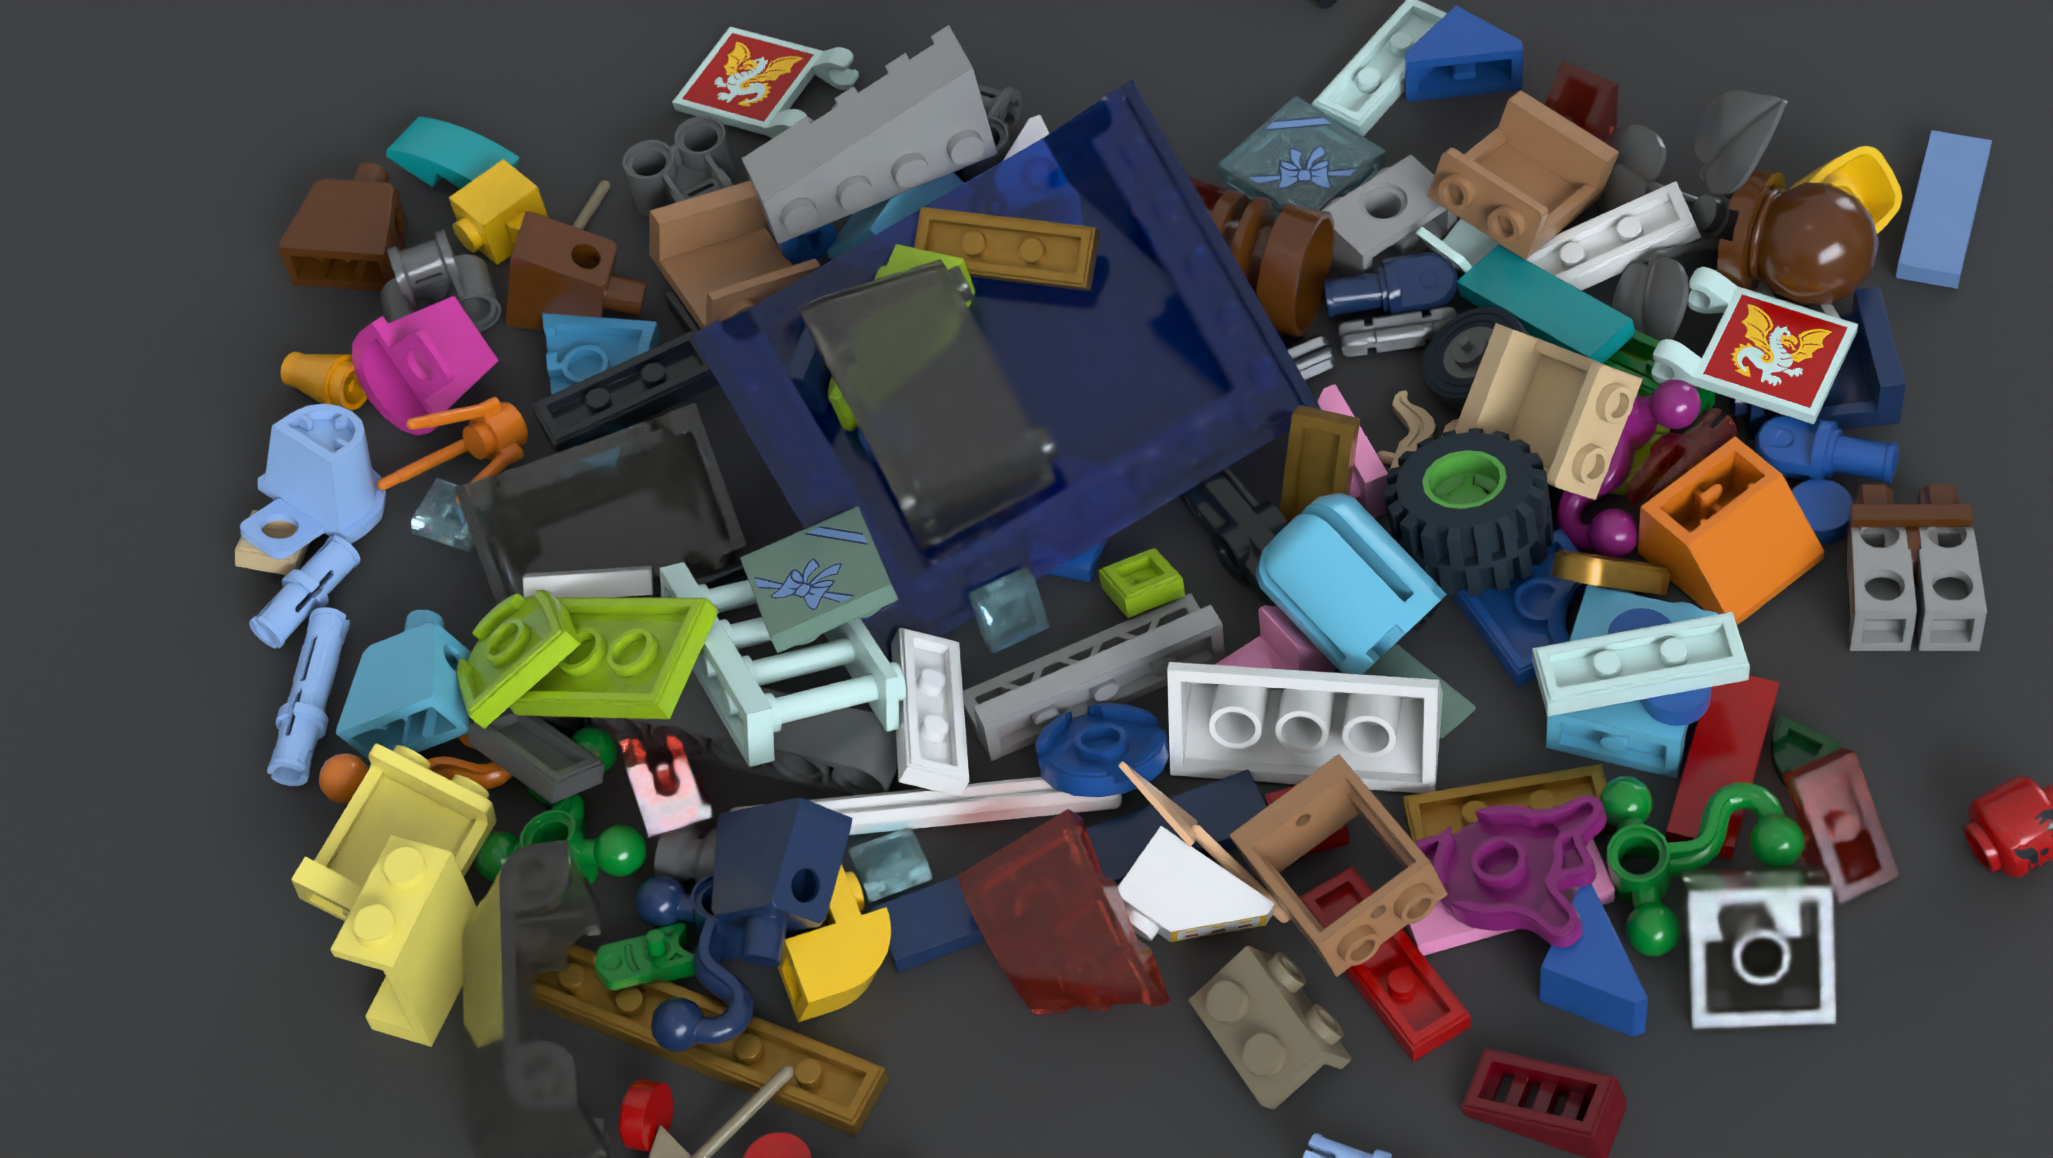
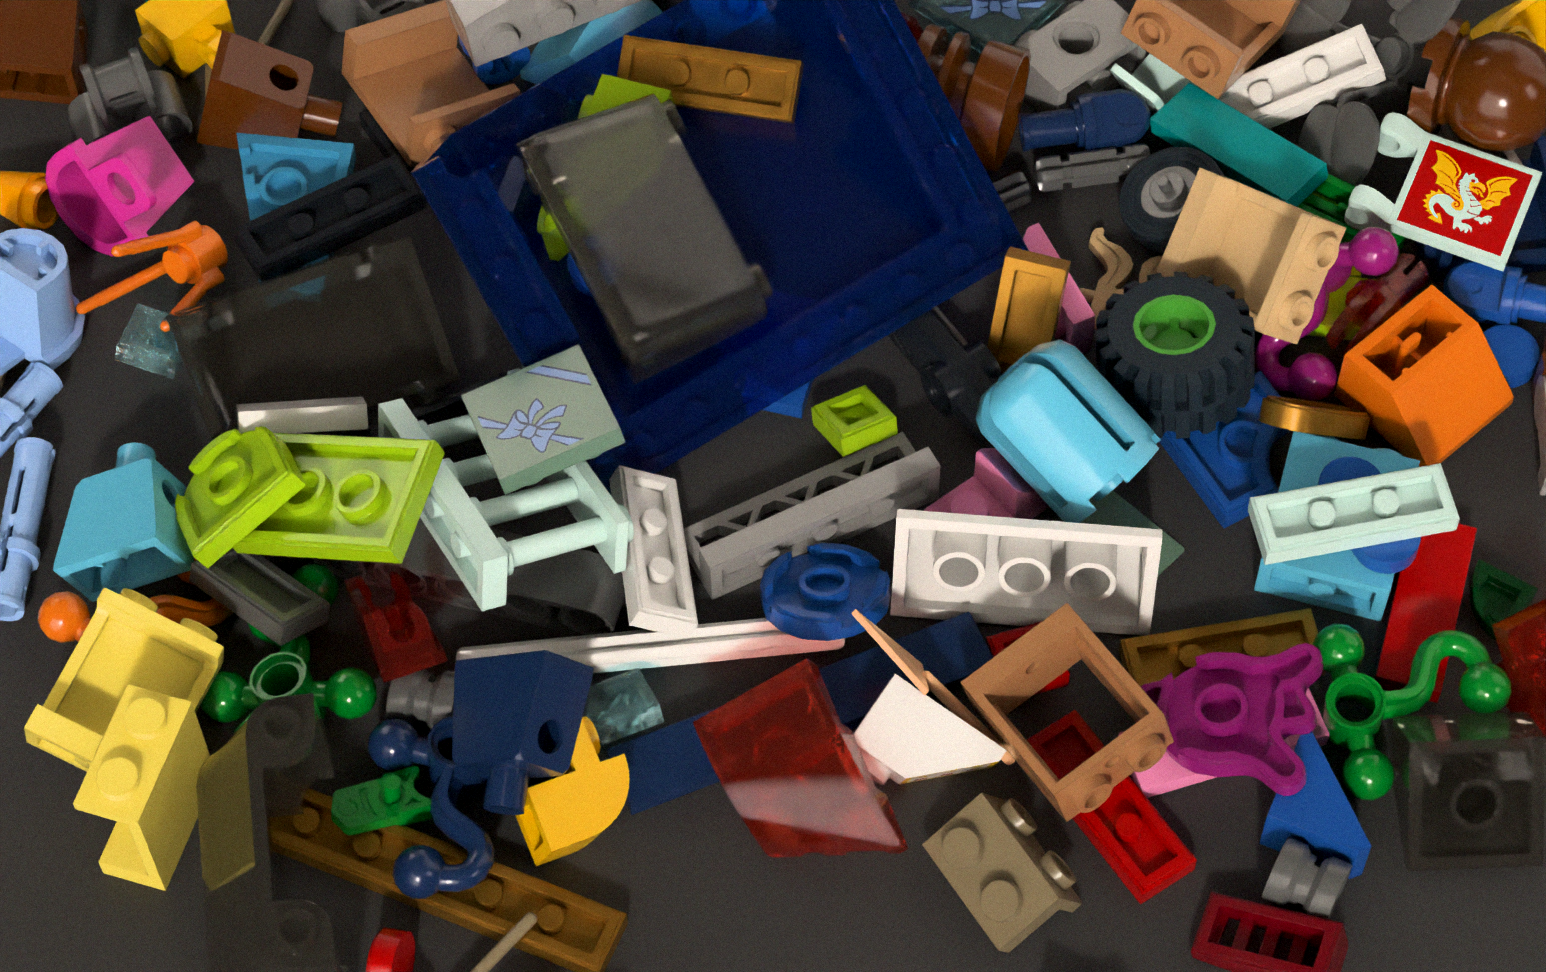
camera: 10 degrees left, 5 degrees up
(1009, 610) = (725, 447): clear light blue tile -> none
(1576, 1033) = (1304, 880): none -> dark grey wheel

